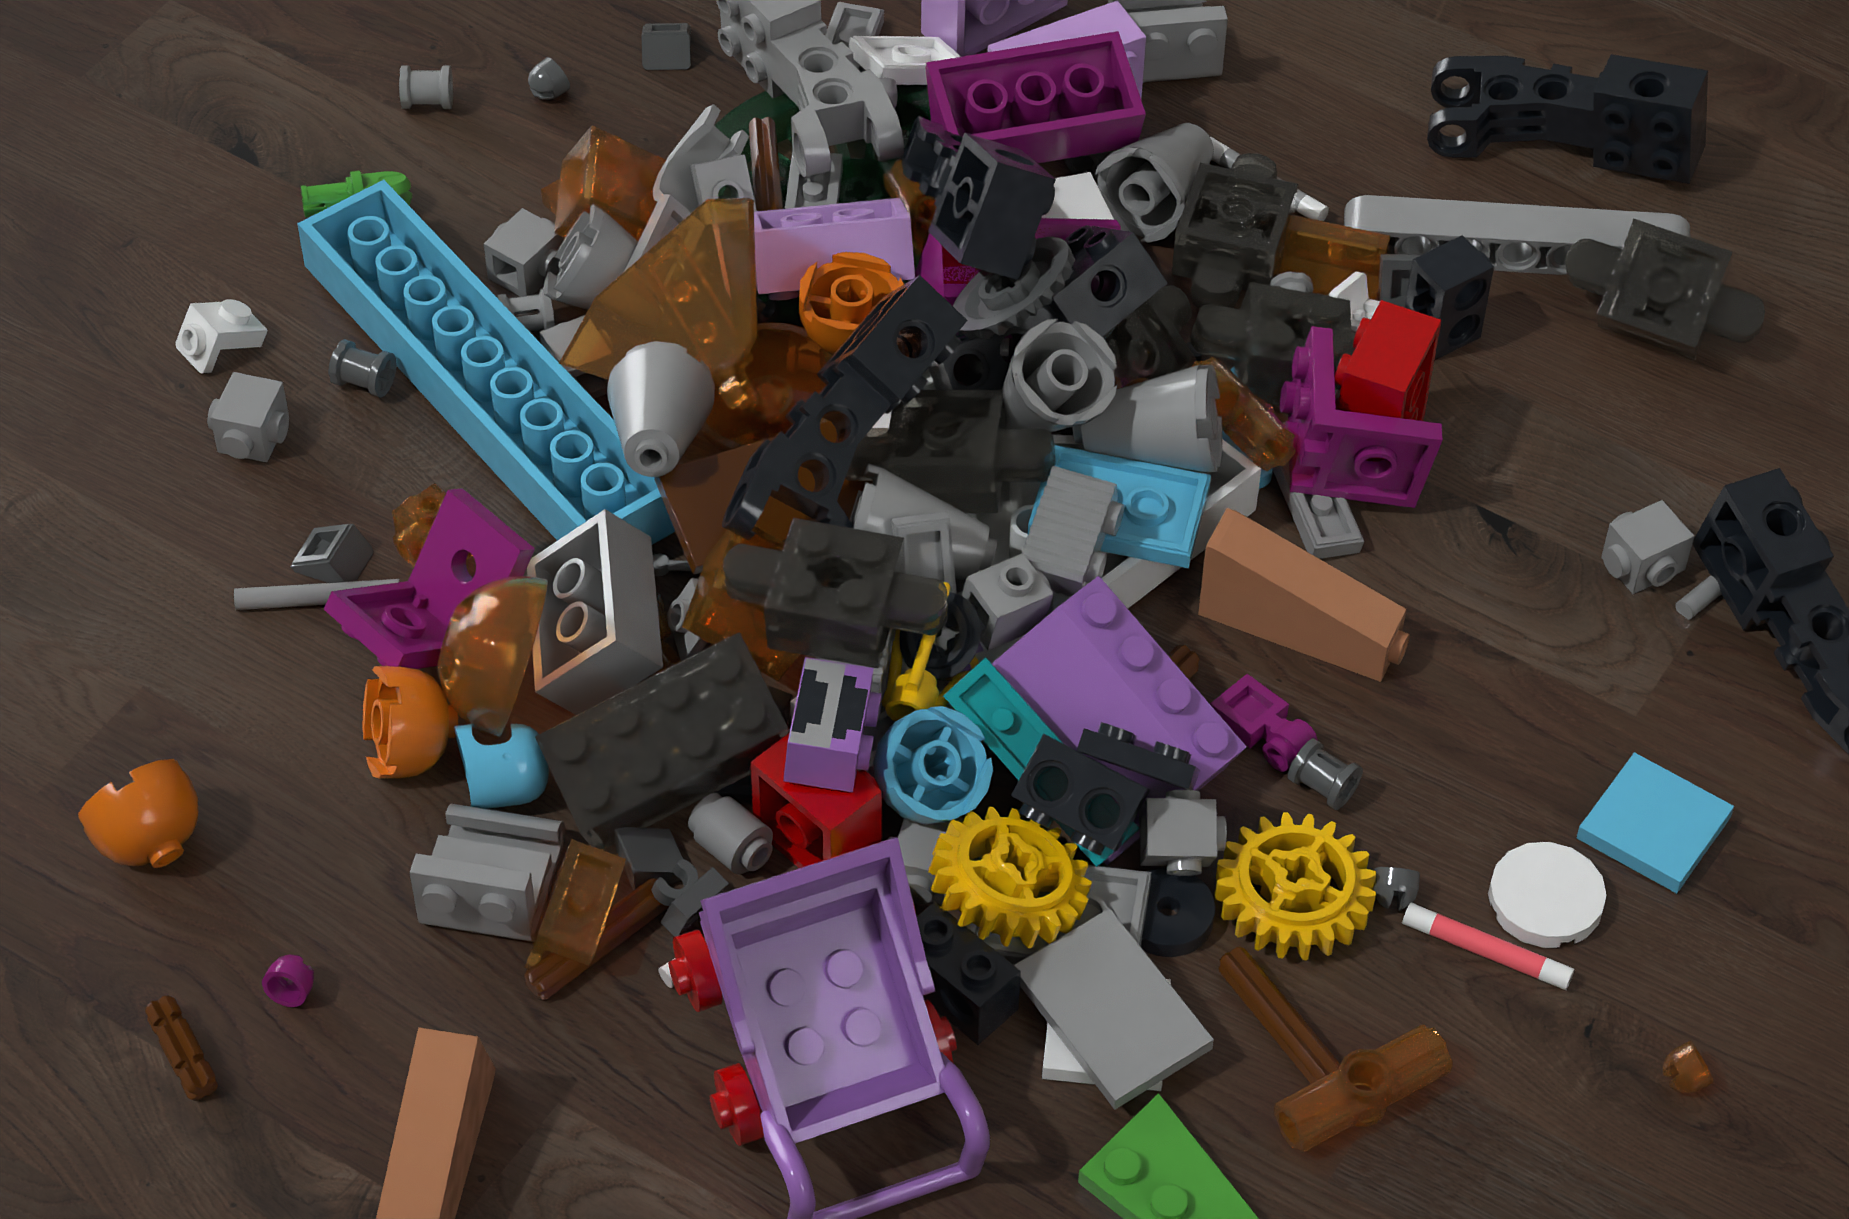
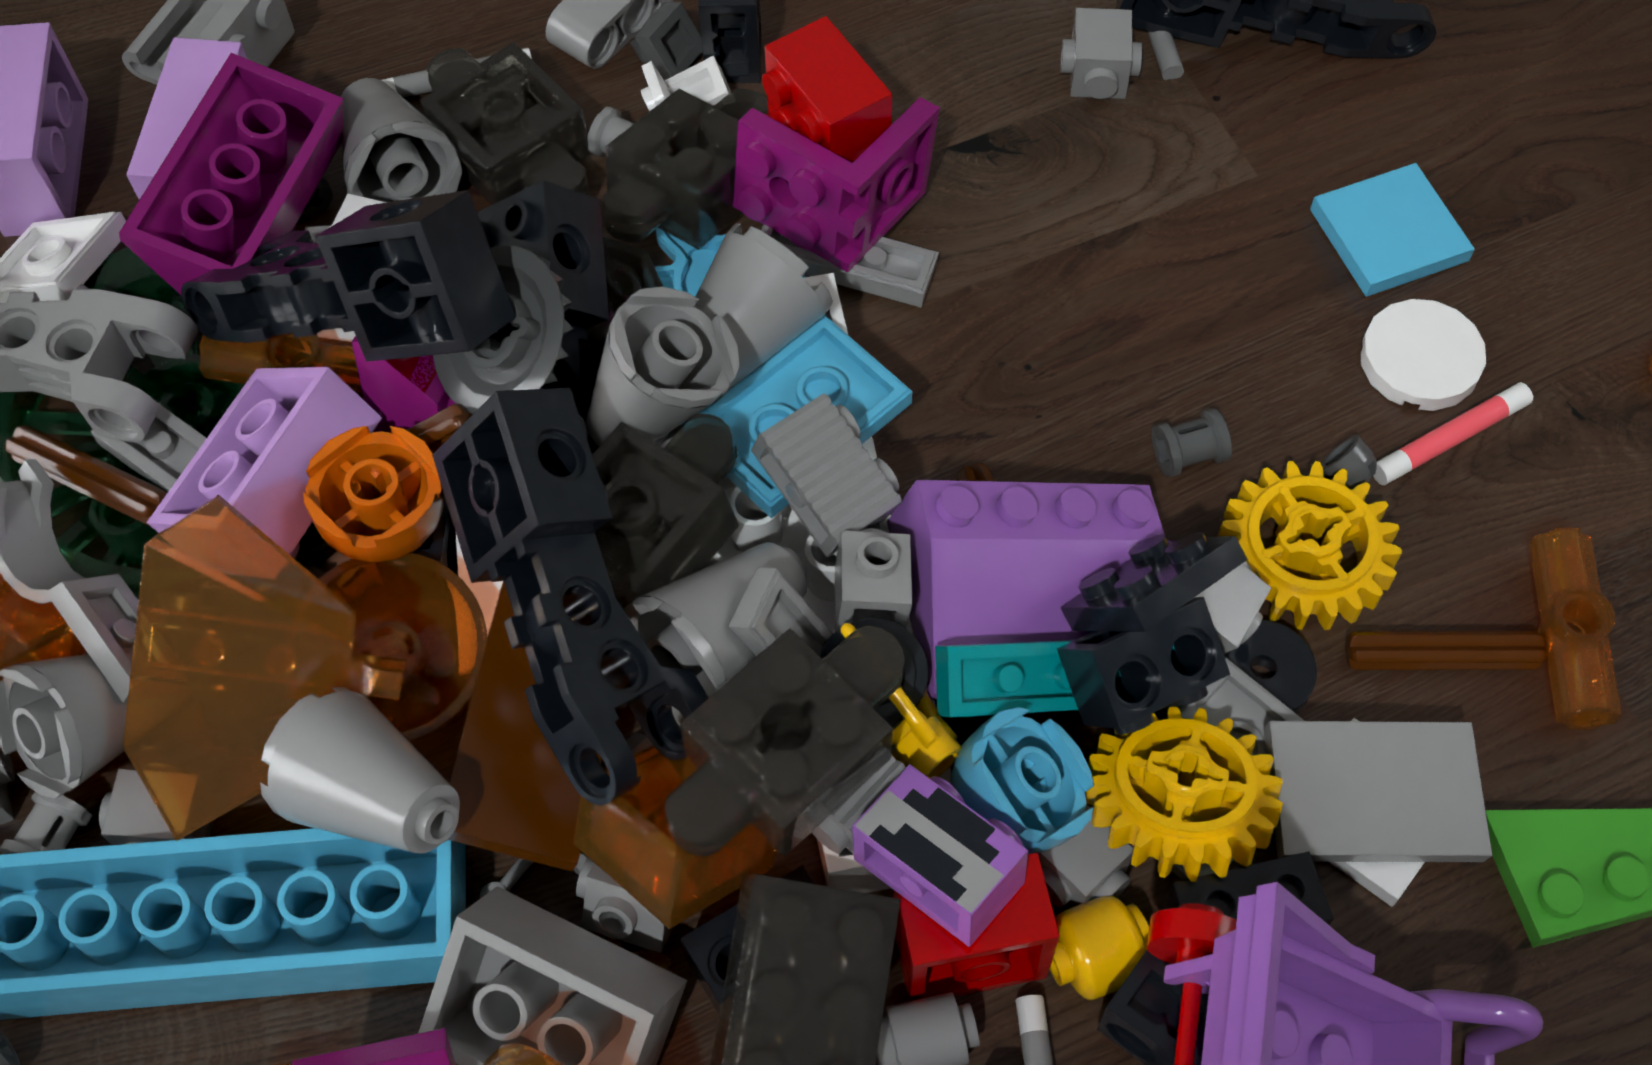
camera: 55 degrees left, 10 degrees up
(728, 172) = (90, 527): light grey brick -> none
(1250, 420) = (688, 253): clear orange piece -> none
(1259, 713) = (1084, 456): magenta plate -> none
(1297, 600) = (987, 341): nougat slope -> none
(1332, 253) = (603, 72): clear orange panel -> none

